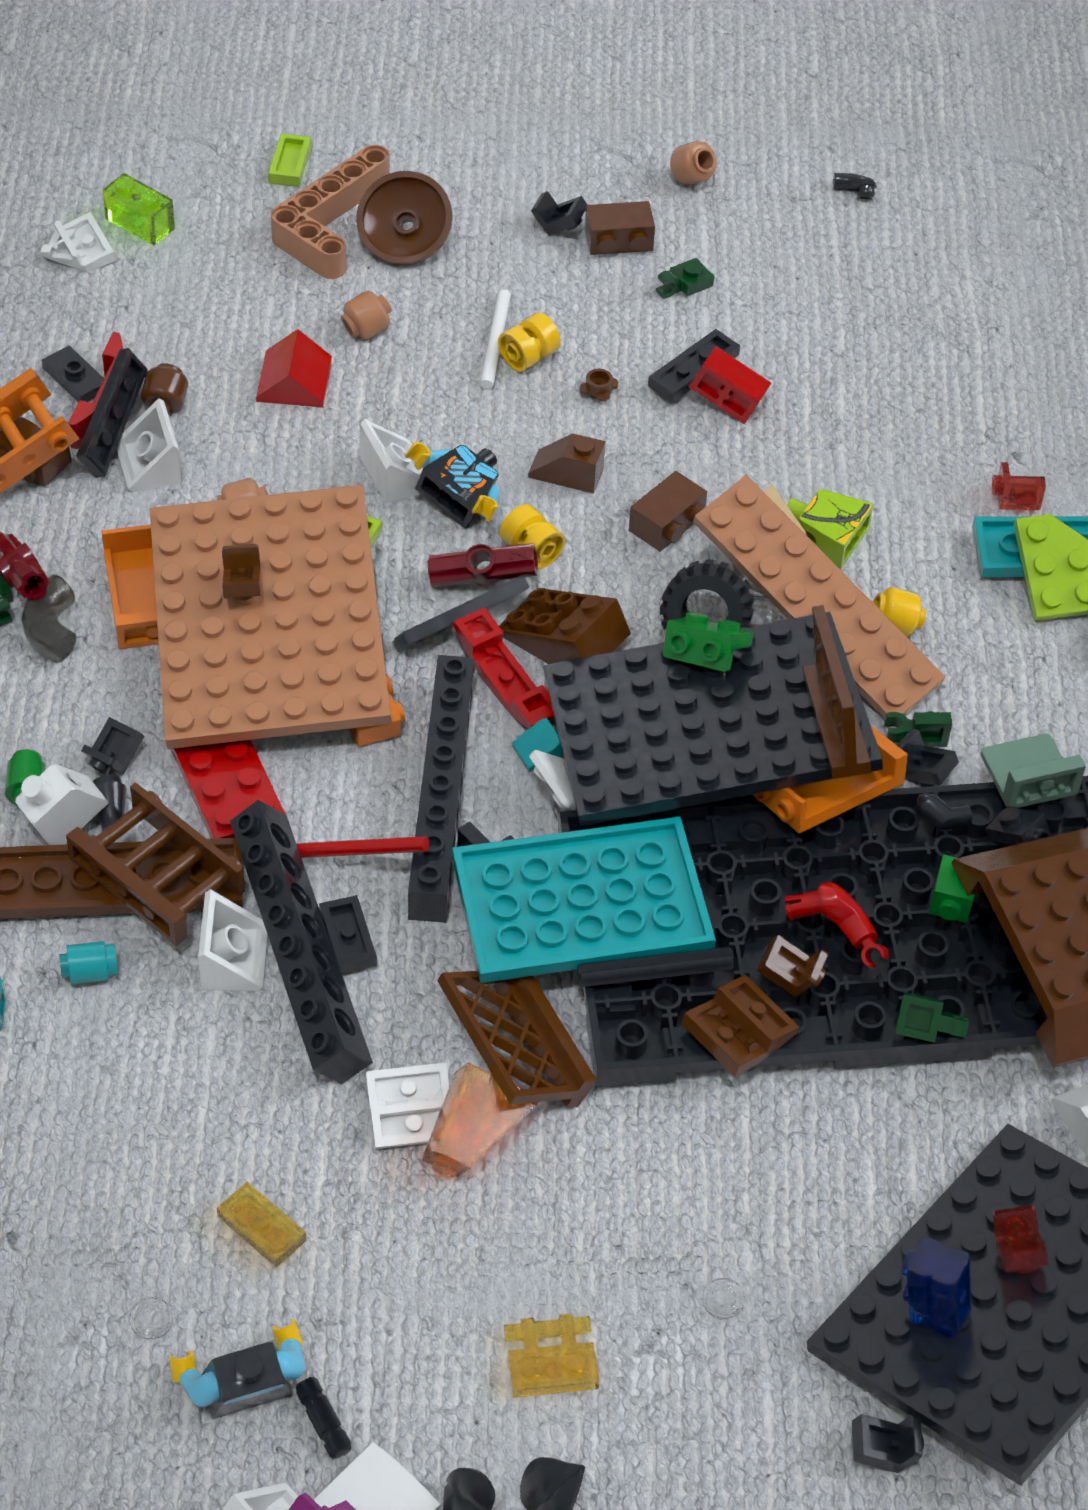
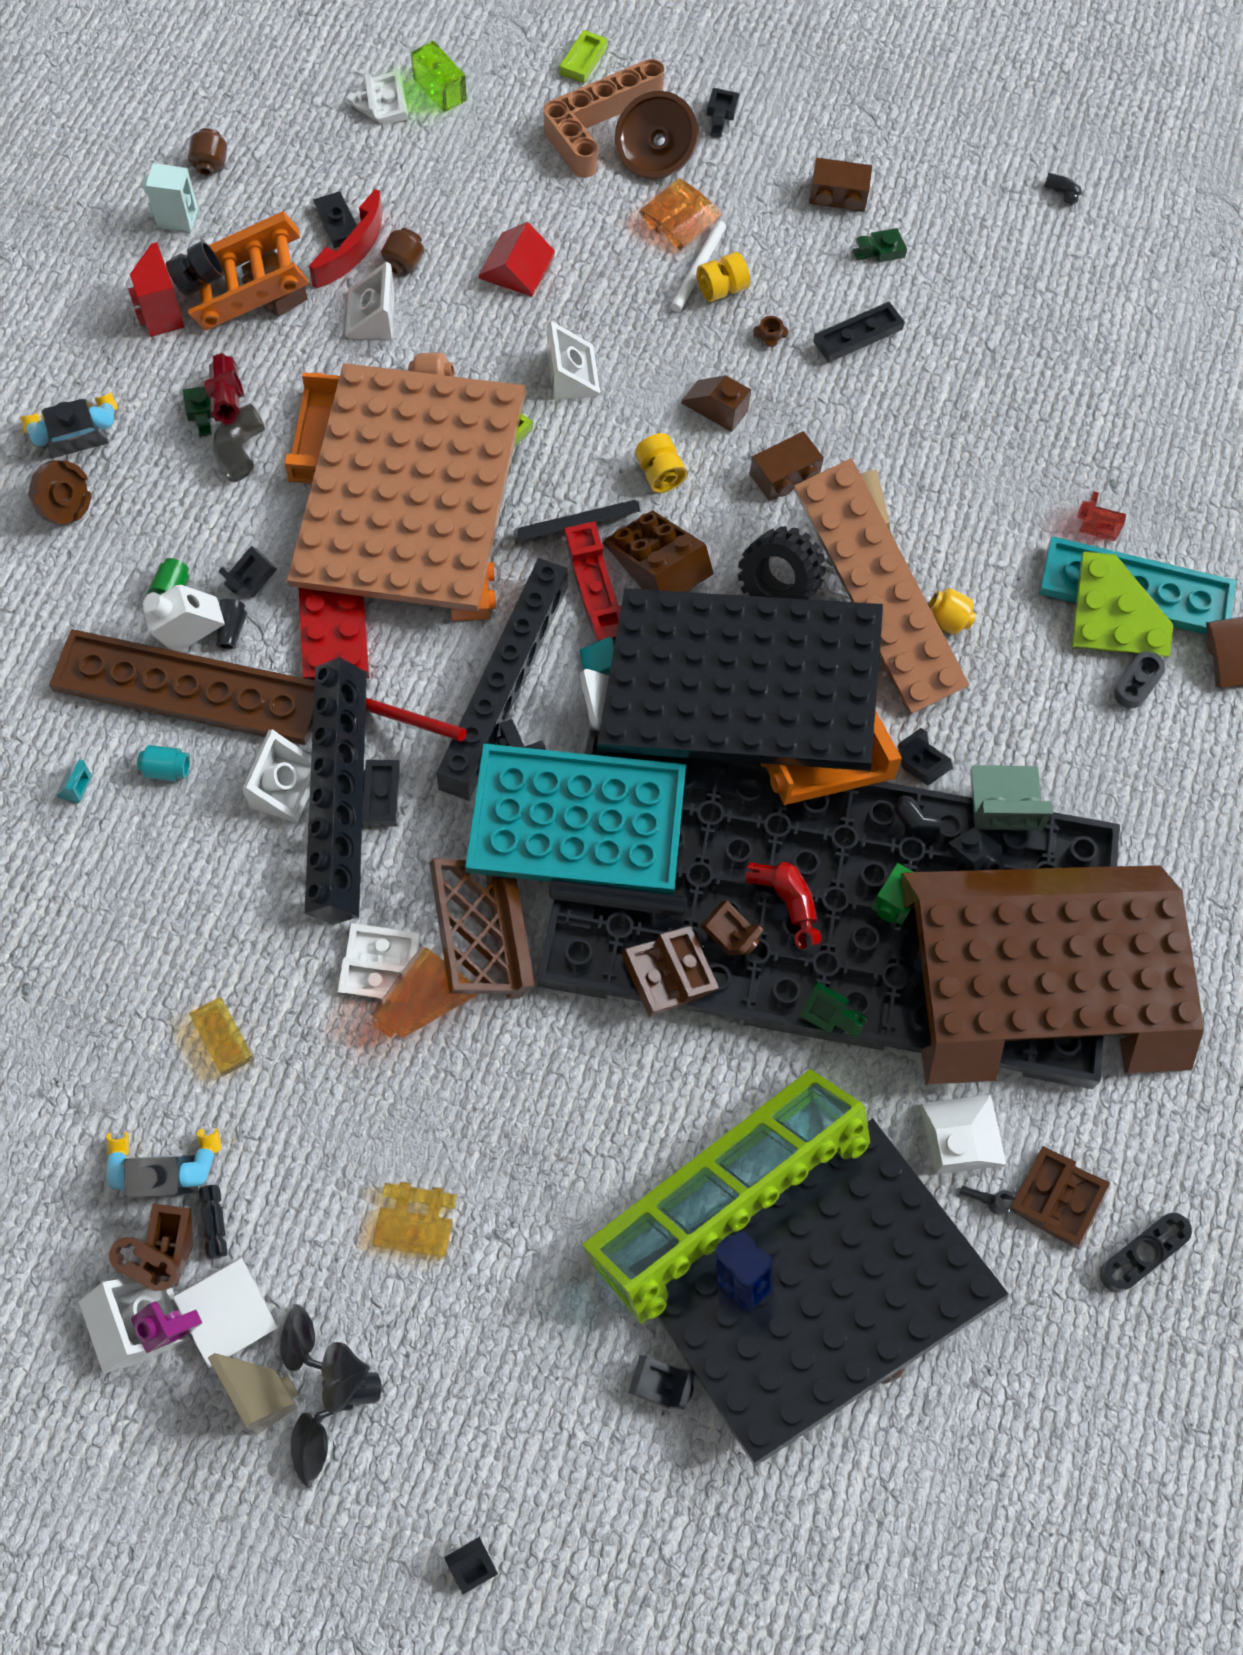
camera: 15 degrees right, 15 degrees up
(112, 413) = (350, 263): black tile -> none
(143, 894) = (223, 716): reddish brown fence -> none
(241, 571) = (392, 446): reddish brown bracket -> none
(269, 1476) = (140, 1272): none -> reddish brown beam
(285, 1443) = (171, 1233): none -> reddish brown slope
(366, 315) = (594, 219): nougat head -> none
(457, 290) = (680, 213): none -> clear orange slope
(458, 481) = (615, 395): torso -> none
(460, 567) = (626, 482): dark red piece -> none
(462, 177) = (721, 106): none -> black plate
(558, 217) = (791, 161): black bracket -> none
(693, 162) = (926, 136): nougat head -> none
(704, 642) = (762, 606): green bracket -> none
(730, 385) = (881, 358): red hinge -> none
(834, 523) = (922, 513): lime torso -> none
(834, 705) = (844, 707): reddish brown fence -> none
(881, 1217) = (724, 1189): none -> window
(933, 727) = (939, 727): dark green plate -> none
(1019, 1239) = (833, 1244): clear red bracket -> none

